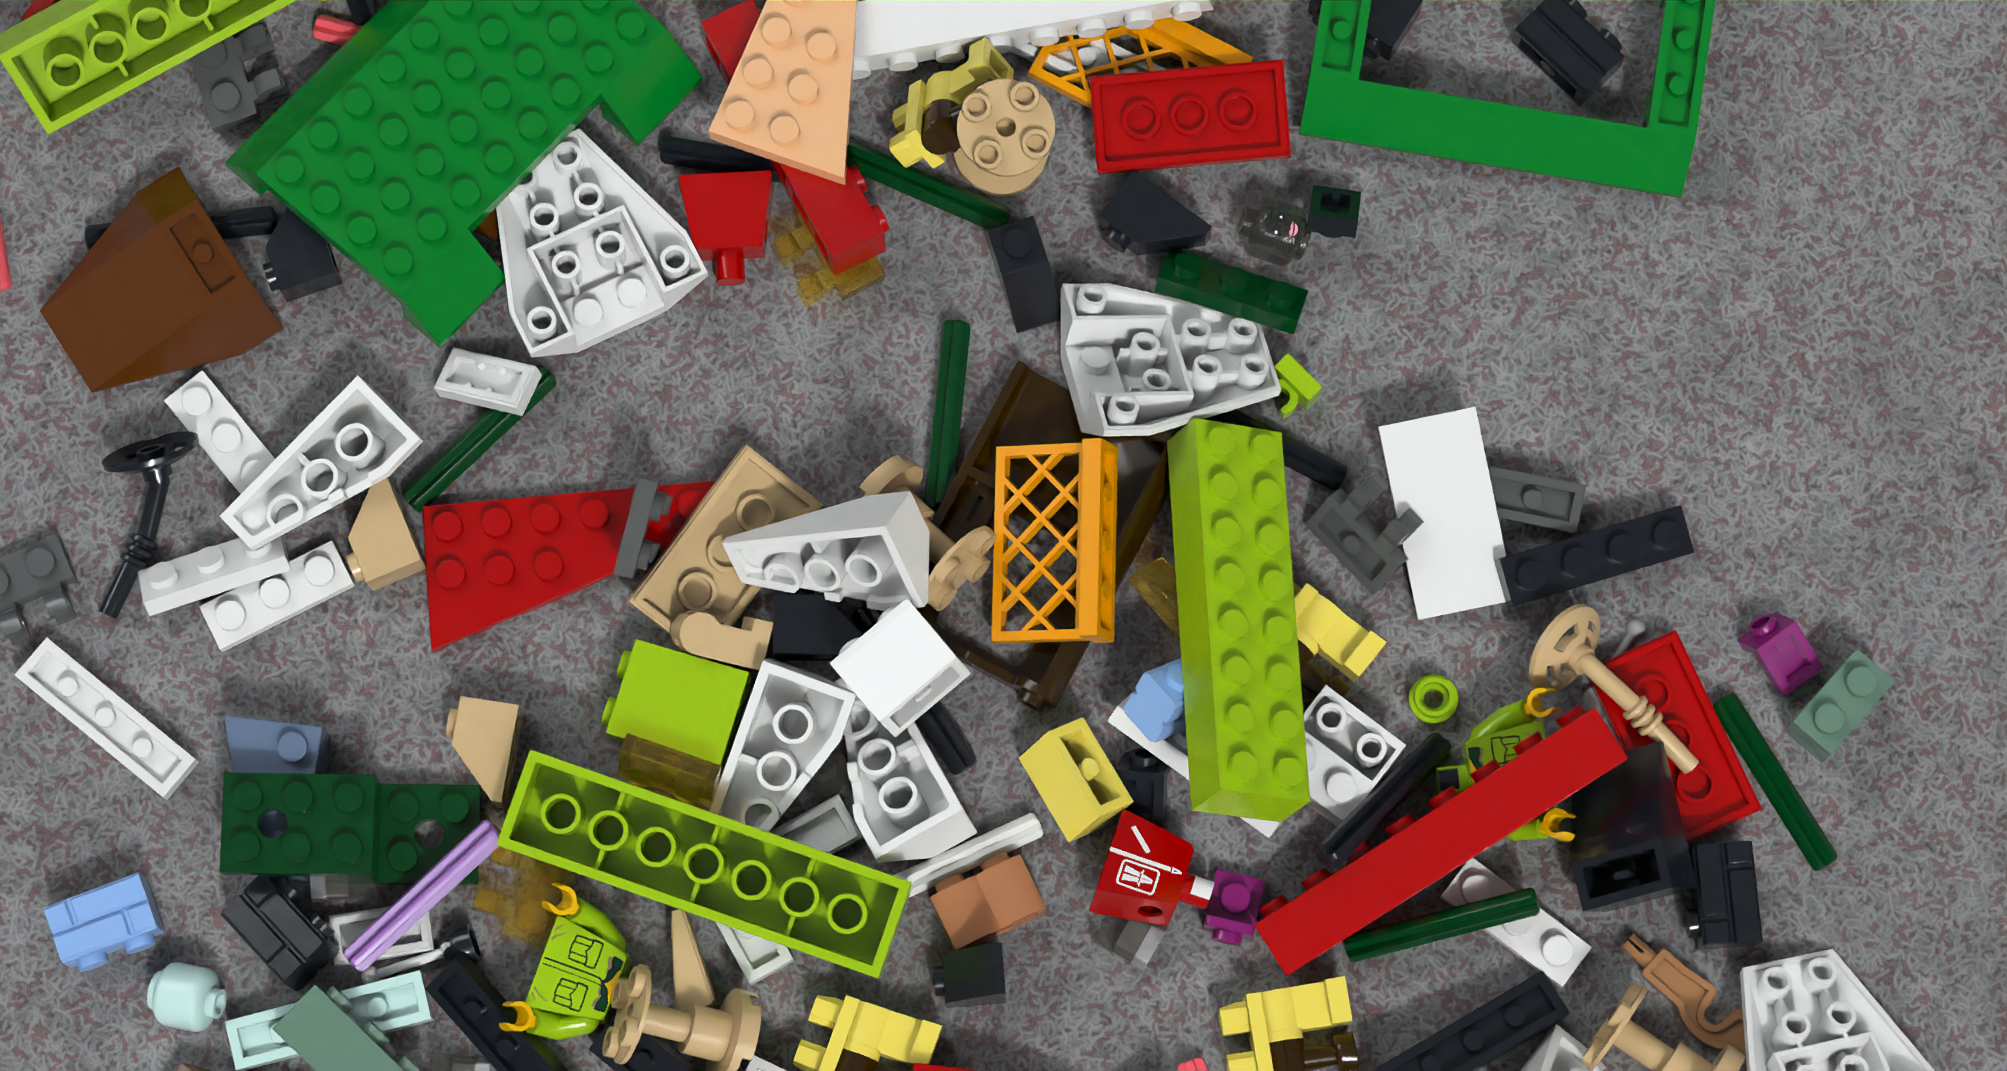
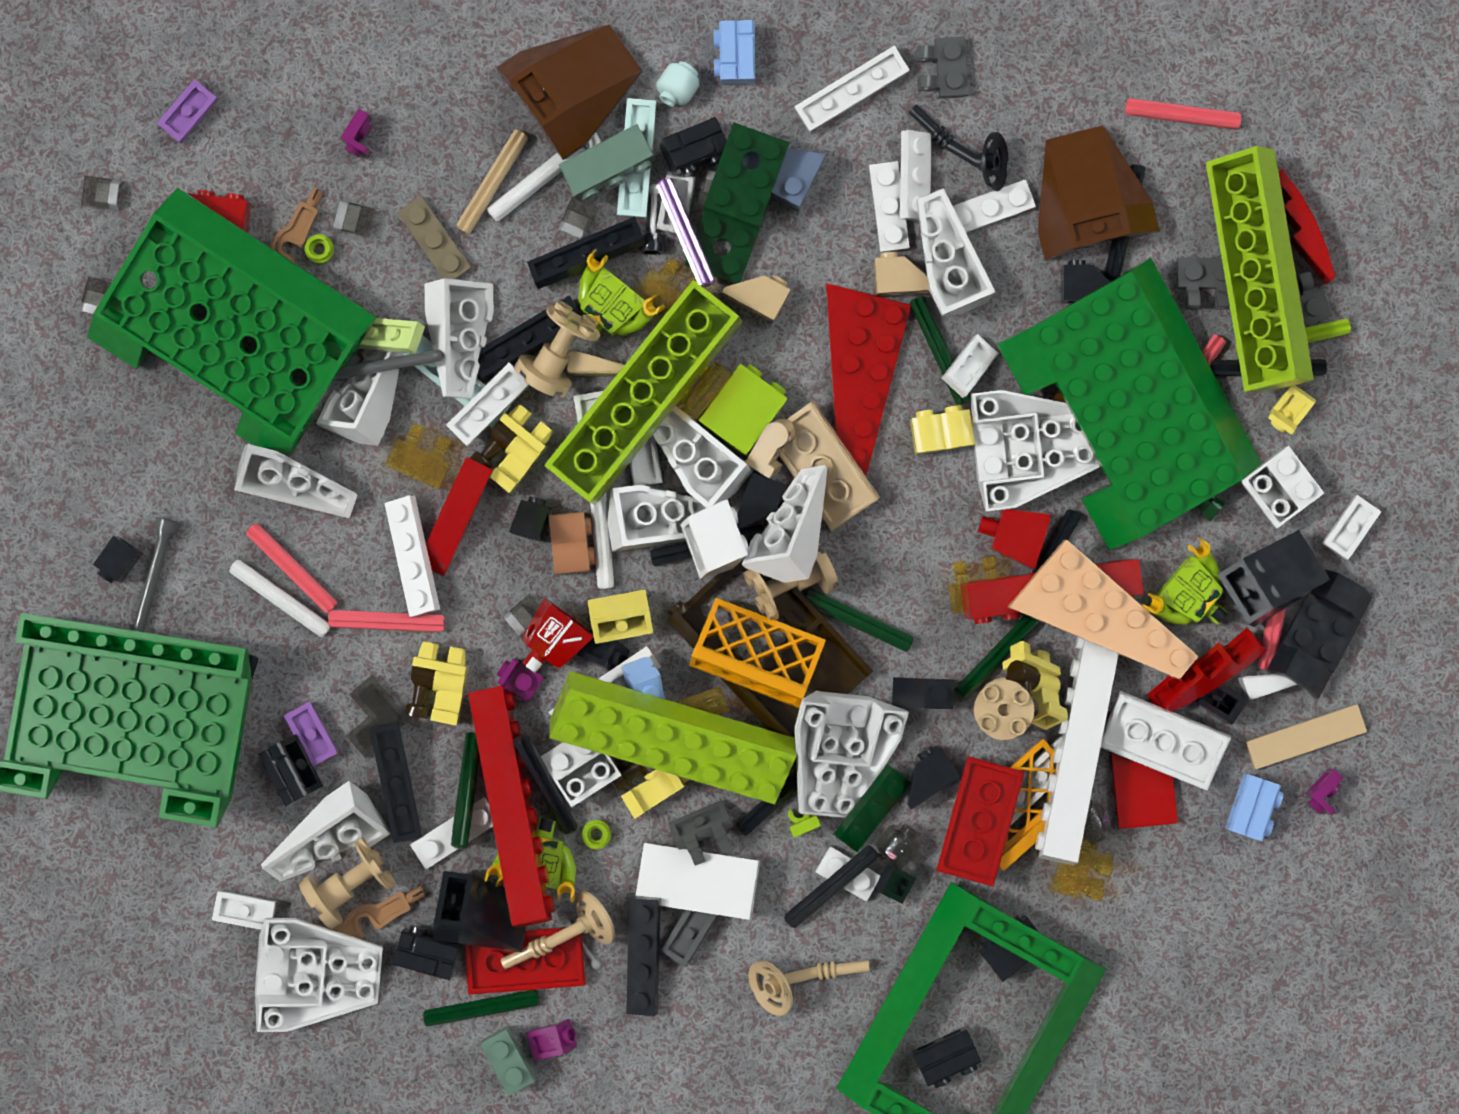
camera: 110 degrees right, 10 degrees up
(605, 389) = (942, 430): none -> light yellow brick
(634, 548) = (841, 415): dark grey plate -> none
(1346, 293) = (860, 886): none -> white plate
(1375, 306) = (831, 886): none -> black axle
(1552, 333) = (780, 982): none -> tan dish

